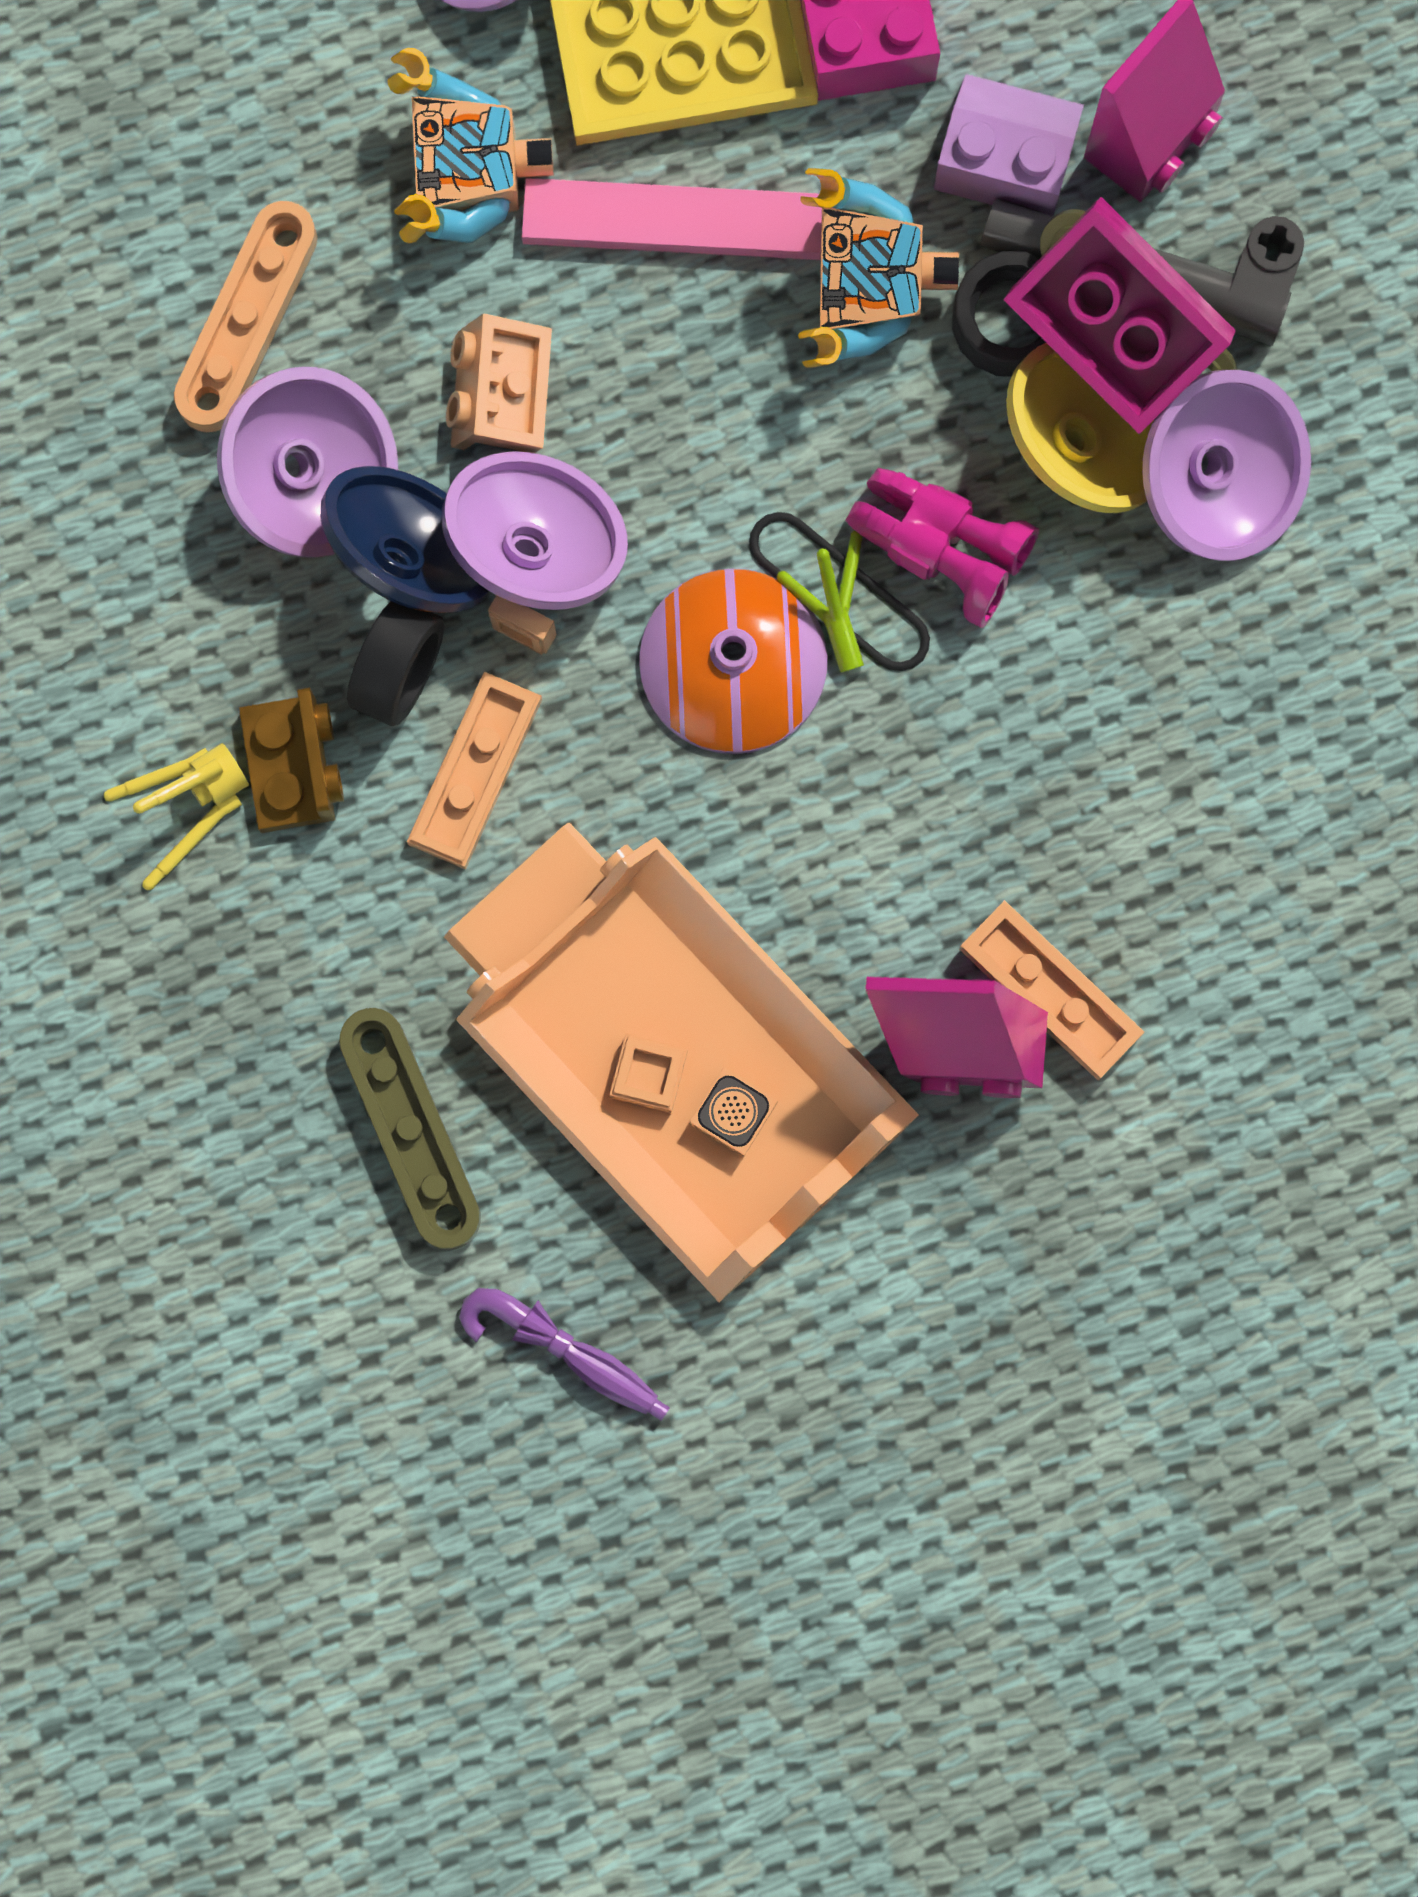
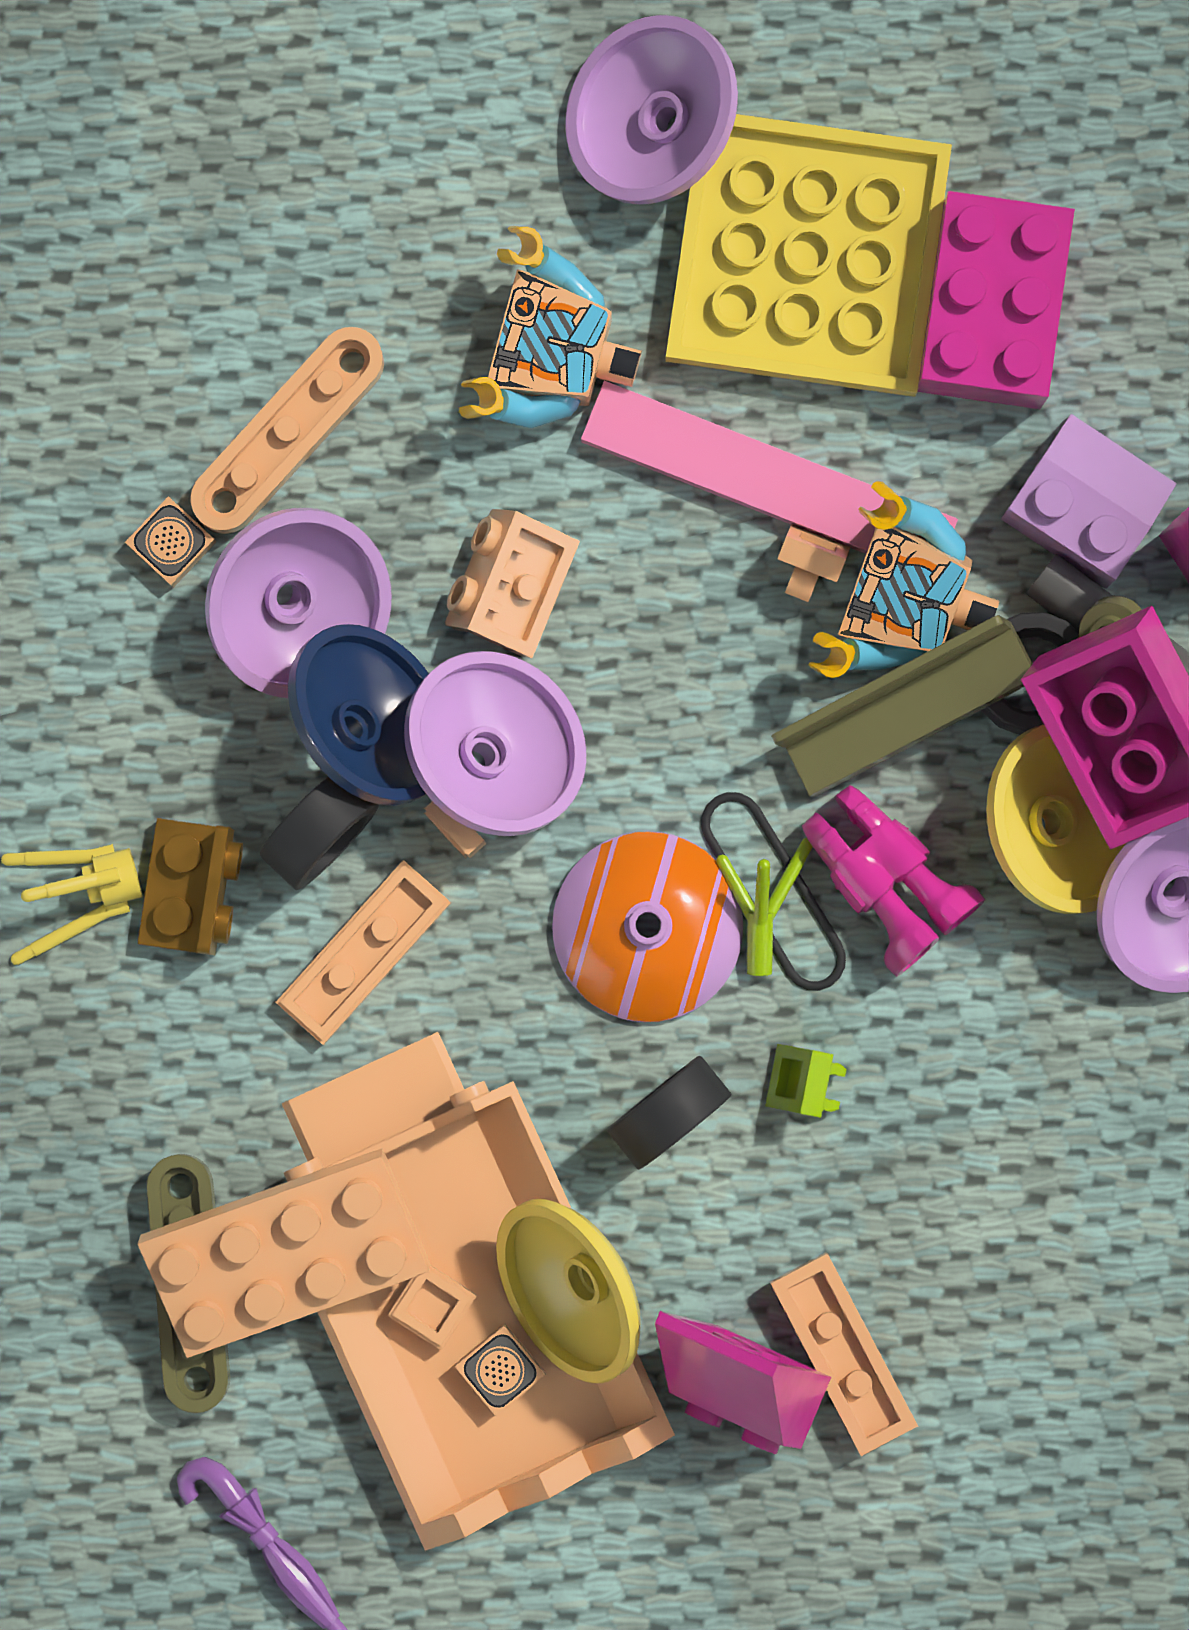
camera: 20 degrees right, 5 degrees up
(169, 453) = (170, 542): none -> tile
(492, 1060) = (284, 1253): none -> light nougat plate
(771, 274) = (812, 557): none -> light nougat tile
(773, 1003) = (569, 1290): none -> light yellow dish
(811, 814) = (669, 1112): none -> black tyre
(904, 372) = (906, 705): none -> olive panel
(925, 750) = (801, 1081): none -> lime tile

